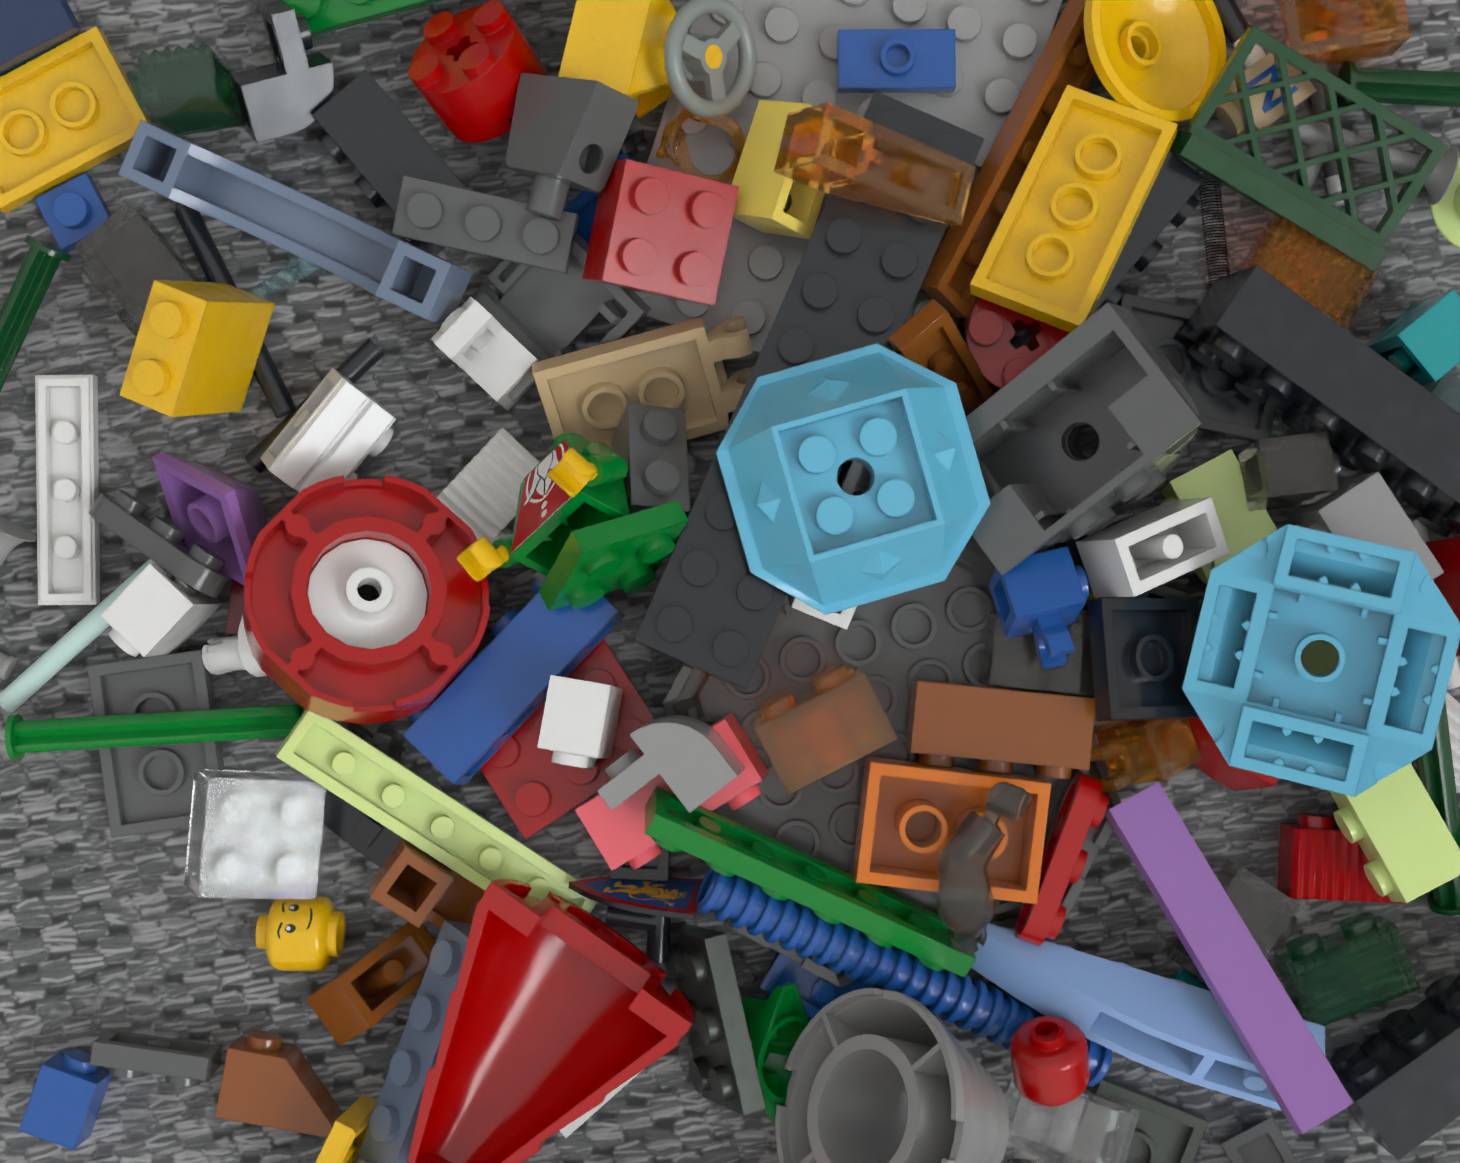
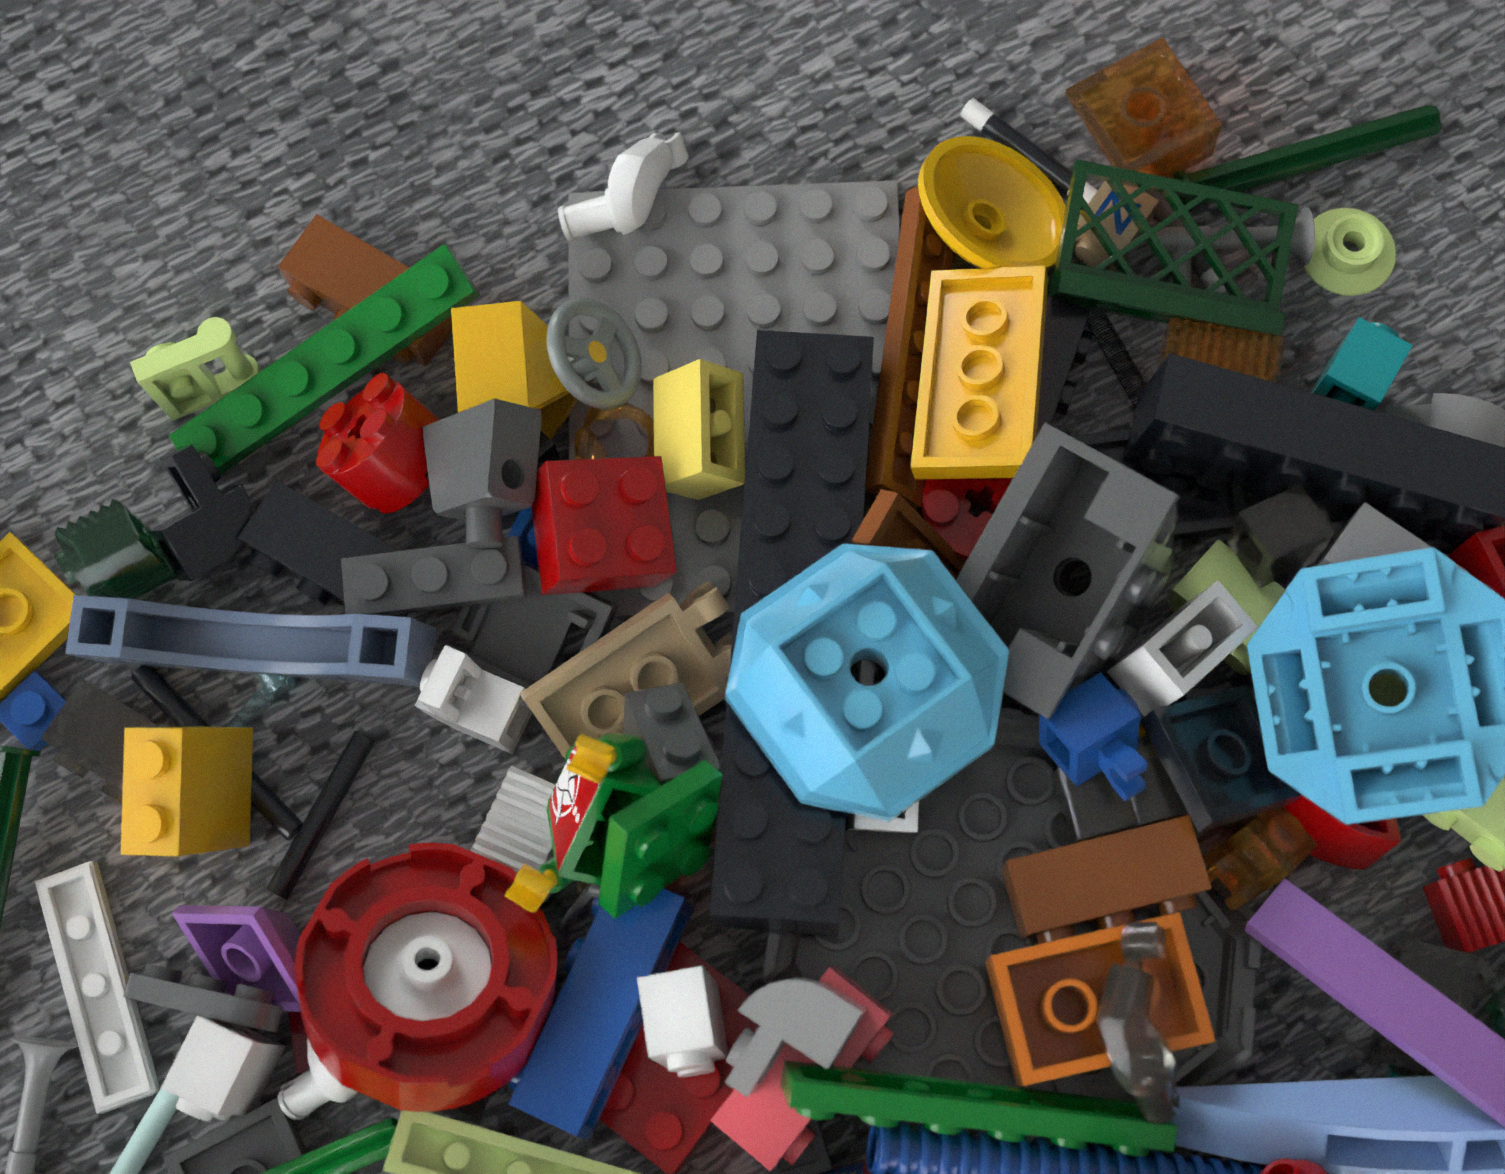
camera: 10 degrees left, 15 degrees down
(329, 434) = (344, 826): white brick -> none
(822, 727) = (931, 939): clear orange brick -> none
(872, 164) = (777, 387): clear orange slope -> none
(896, 61) = (768, 303): blue plate -> none
(1062, 858) = (1224, 992): red plate -> none

